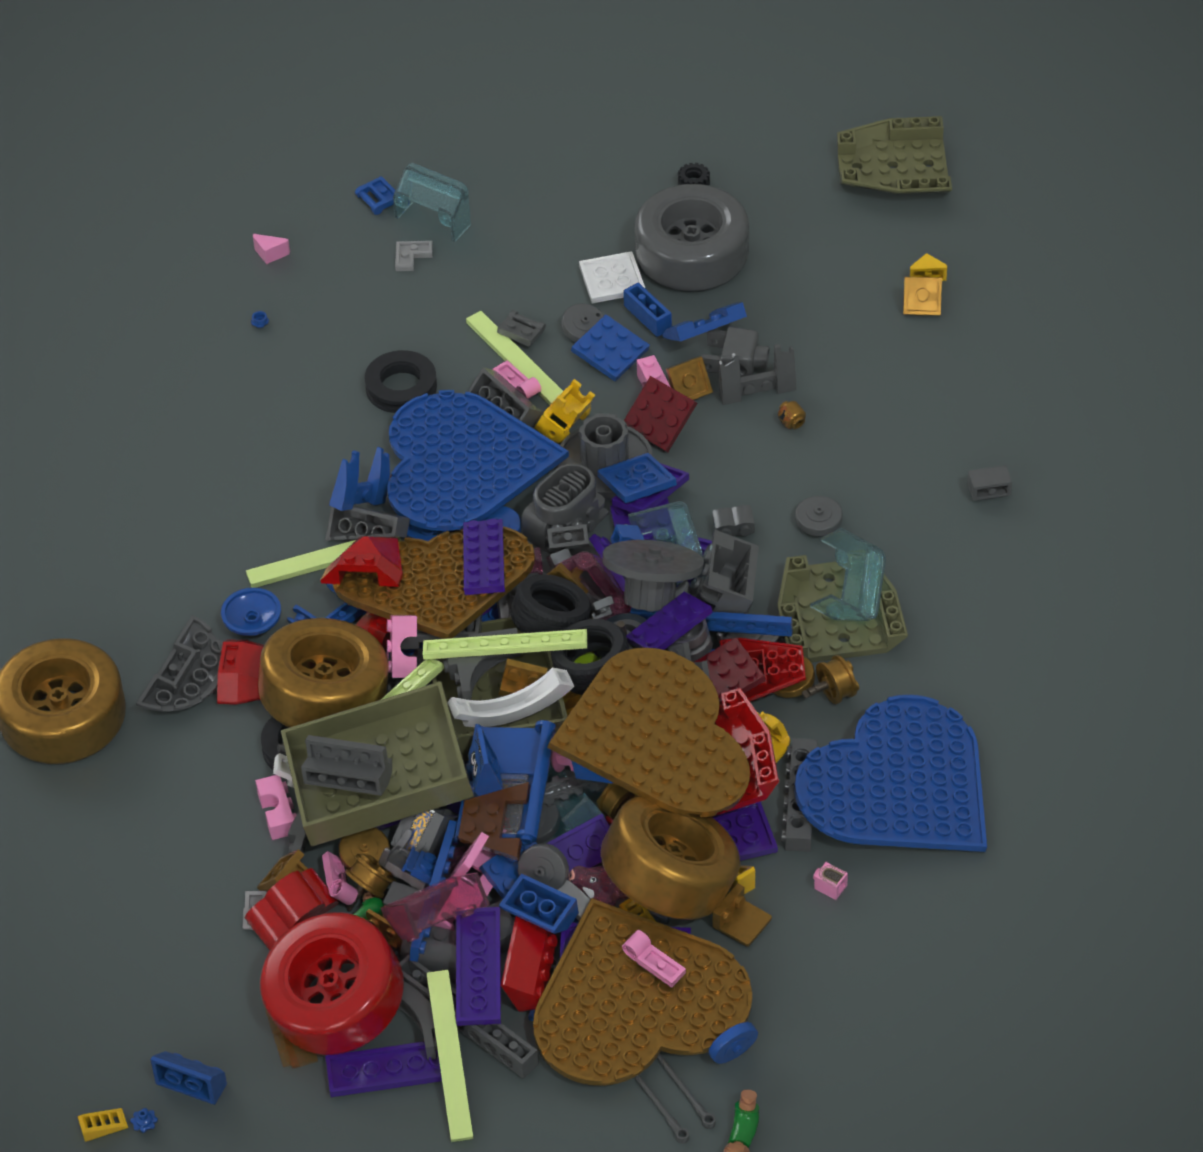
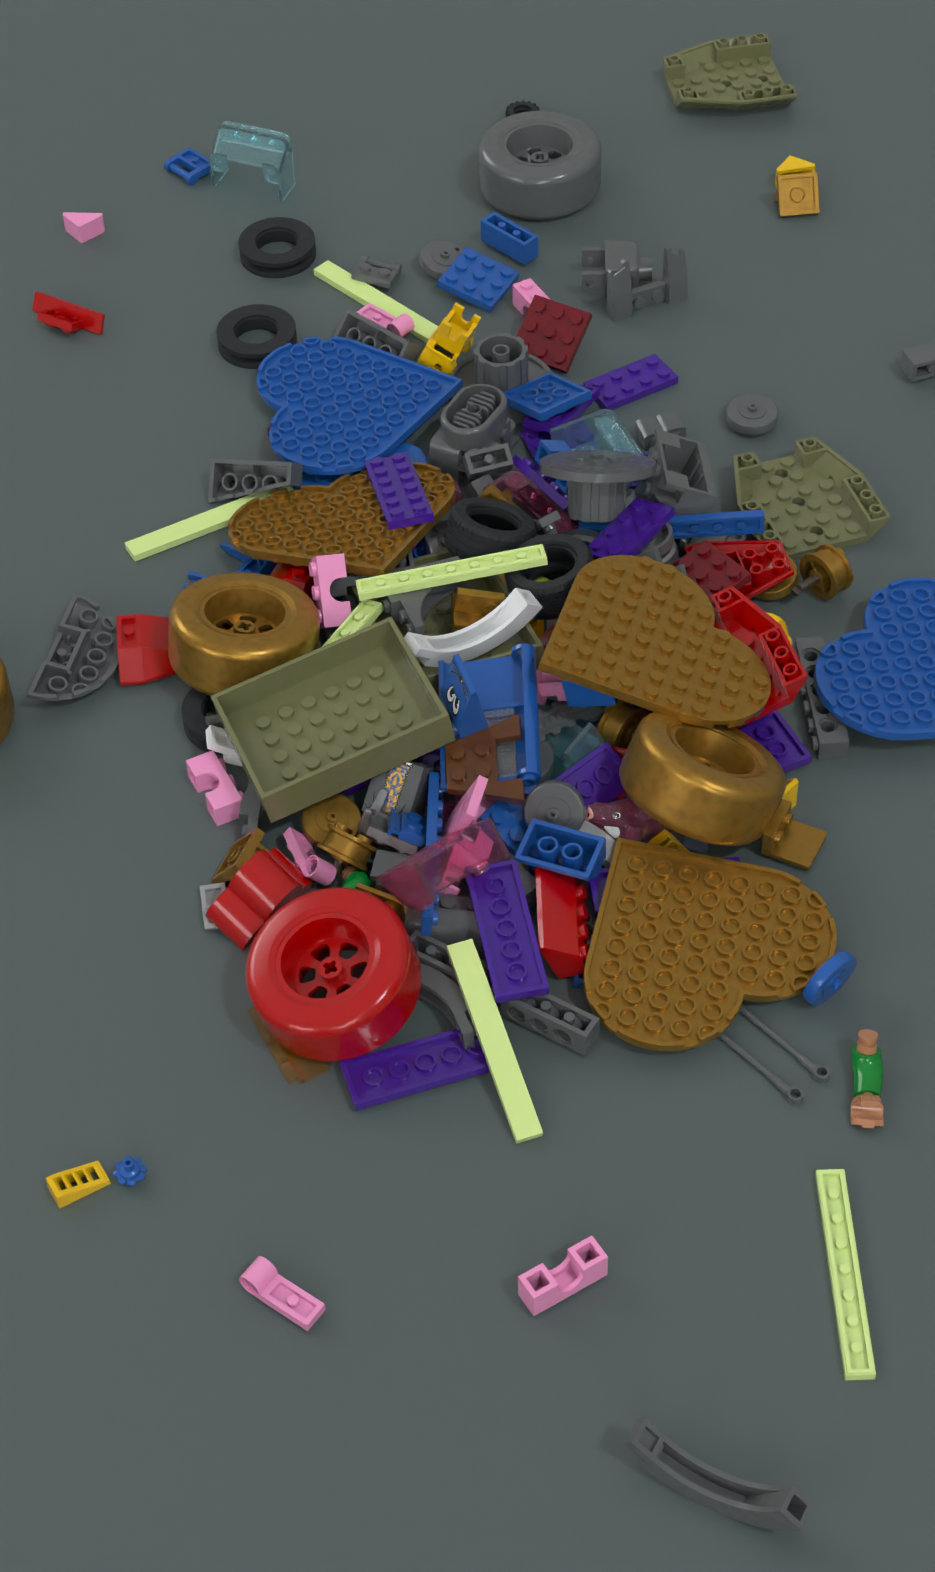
camera: 10 degrees left, 0 degrees up
(188, 1076) = (175, 1111): blue slope -> none
(237, 339) = (66, 315): none -> red bracket
(251, 611) = (141, 582): blue dish -> none
(259, 319) = (86, 294): blue plate -> none
(346, 765) = (300, 721): dark grey brick -> none
(350, 492) = (228, 443): blue wedge -> none
(371, 555) = (265, 503): red wedge -> none
(408, 250) = (235, 214): light grey tile -> none
(444, 309) = (278, 264): none -> black tyre
(609, 276) = (458, 213): white plate -> none
(652, 959) = (695, 888): bright pink plate -> none
(690, 378) = (575, 293): pearl gold bracket -> none
(717, 319) = (586, 237): blue wedge -> none
(722, 469) = (633, 382): none -> dark purple plate
(791, 414) = (692, 321): pearl gold head -> none
(830, 880) = (882, 784): bright pink brick -> none
(862, 578) = (823, 462): clear light blue windscreen -> none

